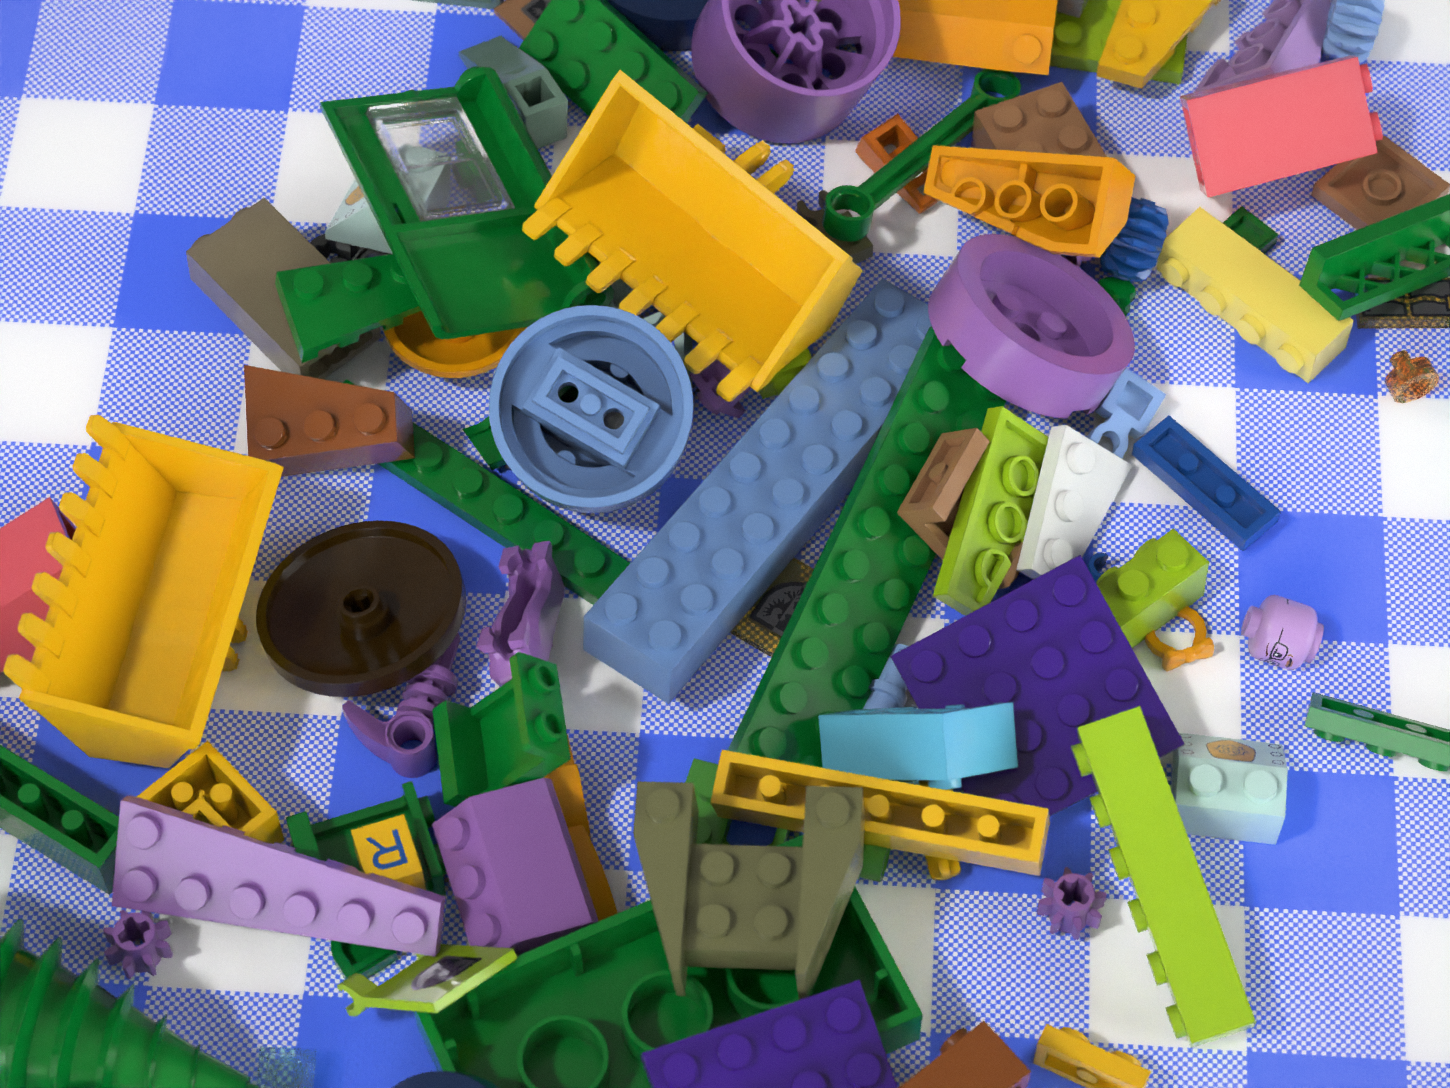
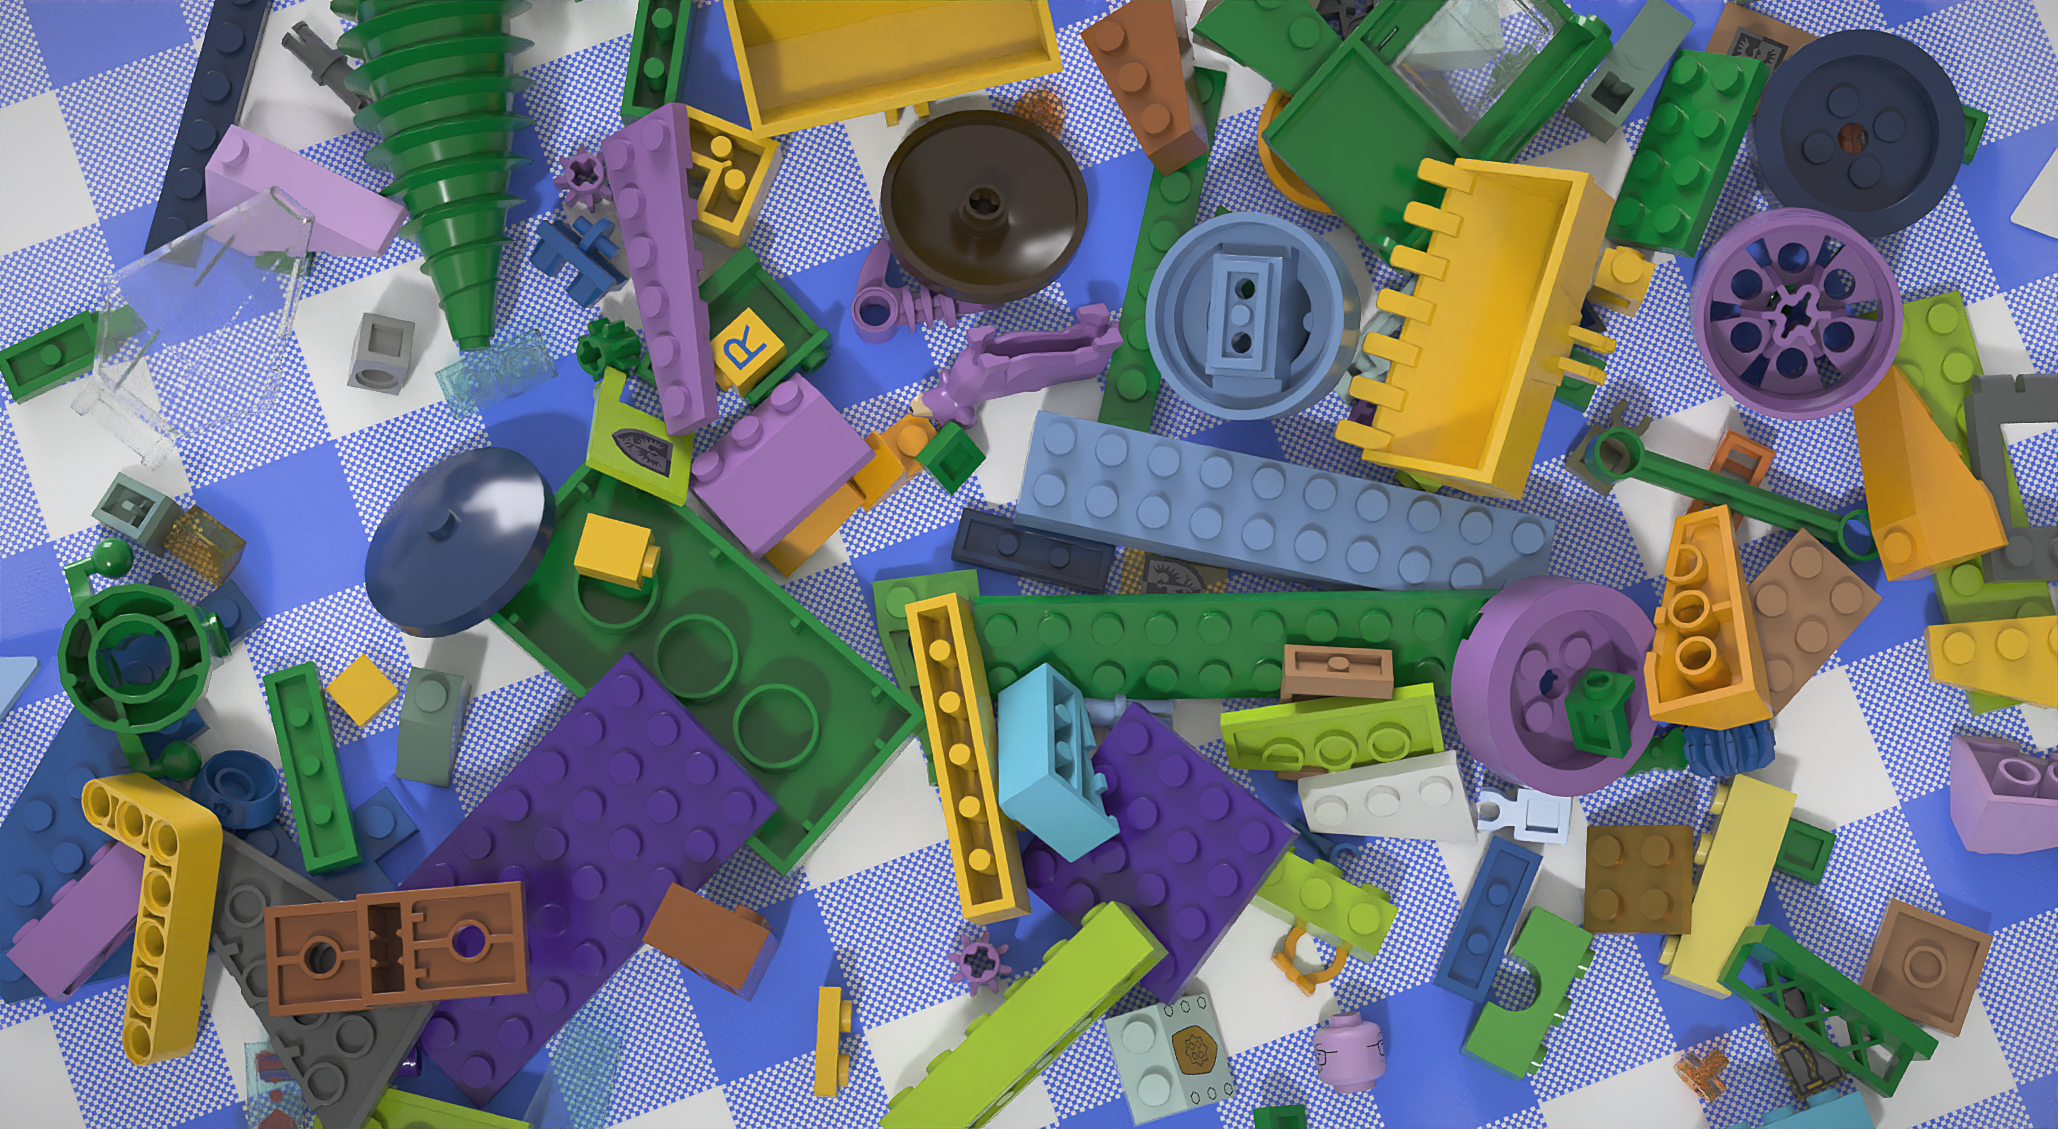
camera: 65 degrees right, 20 degrees up
(237, 972) = (563, 245): none -> blue hips
(294, 533) = (1051, 108): none -> clear orange tile
(312, 1004) = (608, 345): none -> green gear
(506, 736) = (896, 392): green panel -> none
(535, 1026) = (617, 552): none -> yellow brick
(585, 737) = (950, 457): none -> green tile
(699, 710) = (1032, 553): none -> dark blue tile
(745, 900) = (809, 677): olive wedge -> none
(1070, 303) = (1598, 712): none -> green bracket
(1221, 351) = (1639, 880): none -> pearl gold plate
(1261, 445) = (1553, 955): none -> bright green arch
(1280, 125) = (1920, 834): coral slope -> none

